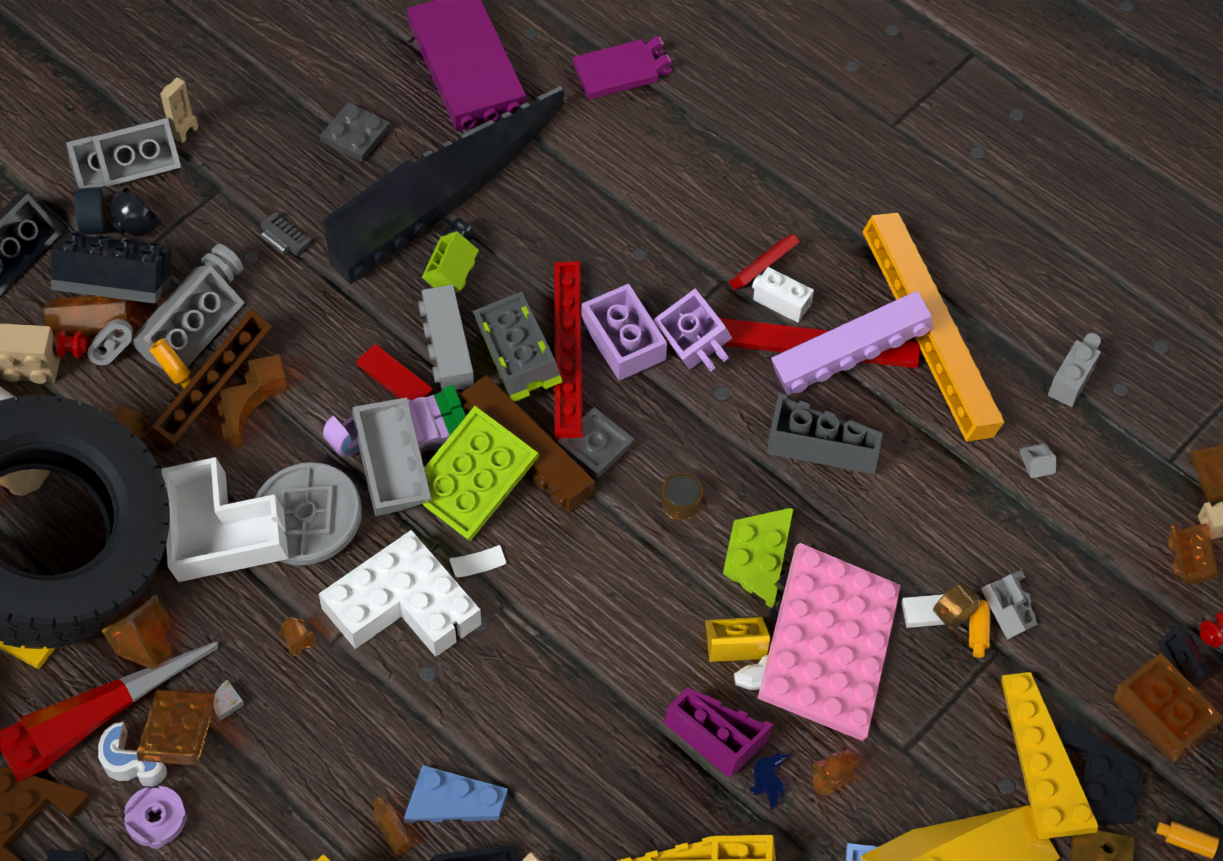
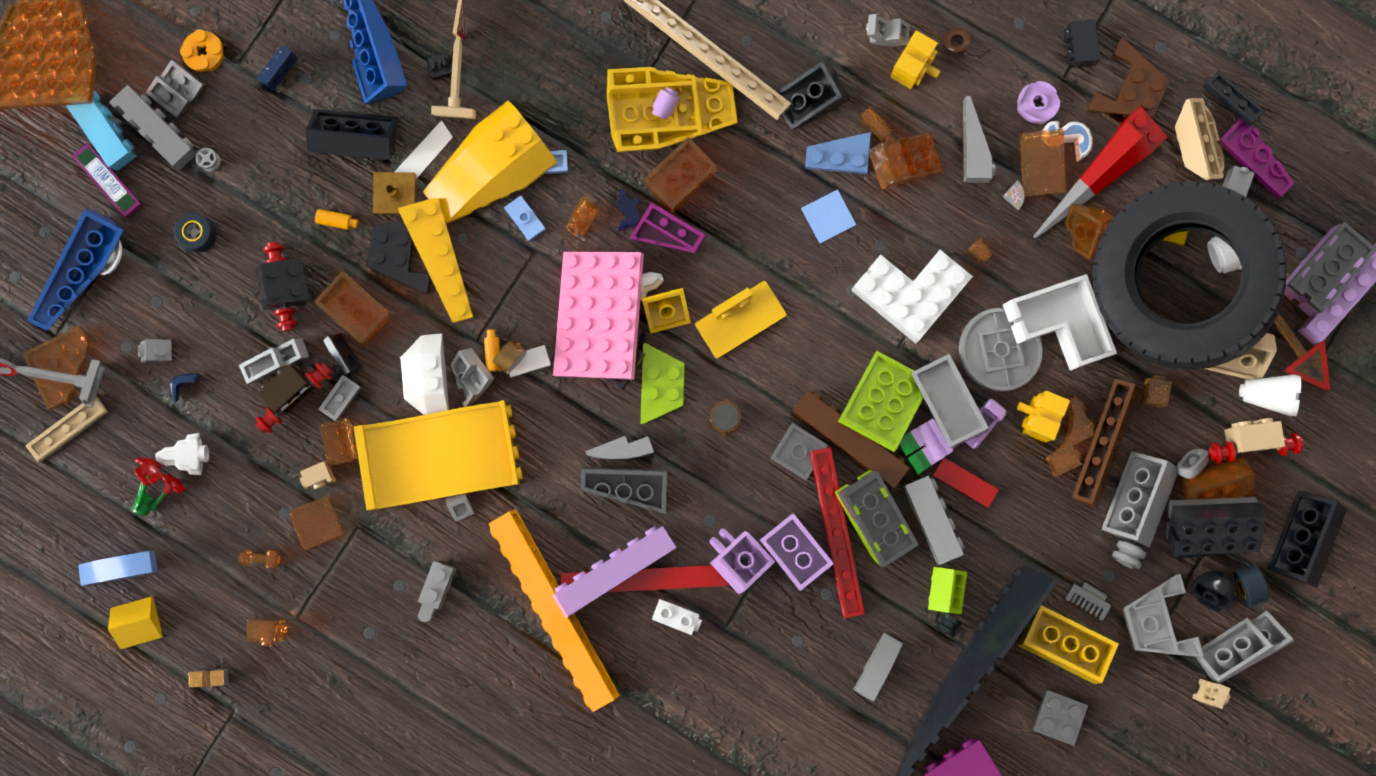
camera: 175 degrees right, 25 degrees up
(170, 362) = (1140, 452): light orange cylinder -> none
(220, 198) = (1151, 625): none -> light grey wing
(265, 754) = (976, 154): none -> light grey slope
(276, 419) = (1044, 416): none -> yellow brick
(314, 181) = (1068, 645): none -> yellow brick
(364, 769) = (905, 160): none -> clear orange slope
(478, 562) = (865, 338): white sticker -> none
(489, 722) = (828, 216): none -> light blue piece
(552, 206) = (878, 667): none -> light grey slope
(638, 610) = (740, 319): none -> yellow bracket
(688, 801) = (680, 175): none -> clear orange brick
(763, 261) = (695, 646): red tile -> none
(822, 481) = (621, 450): none -> light grey slope
(916, 793) = (524, 218): none -> light blue plate
(1063, 516) = (437, 455): none -> yellow panel
(1071, 616) = (425, 375): none -> white wedge
(1190, 605) = (339, 398): none -> light grey plate

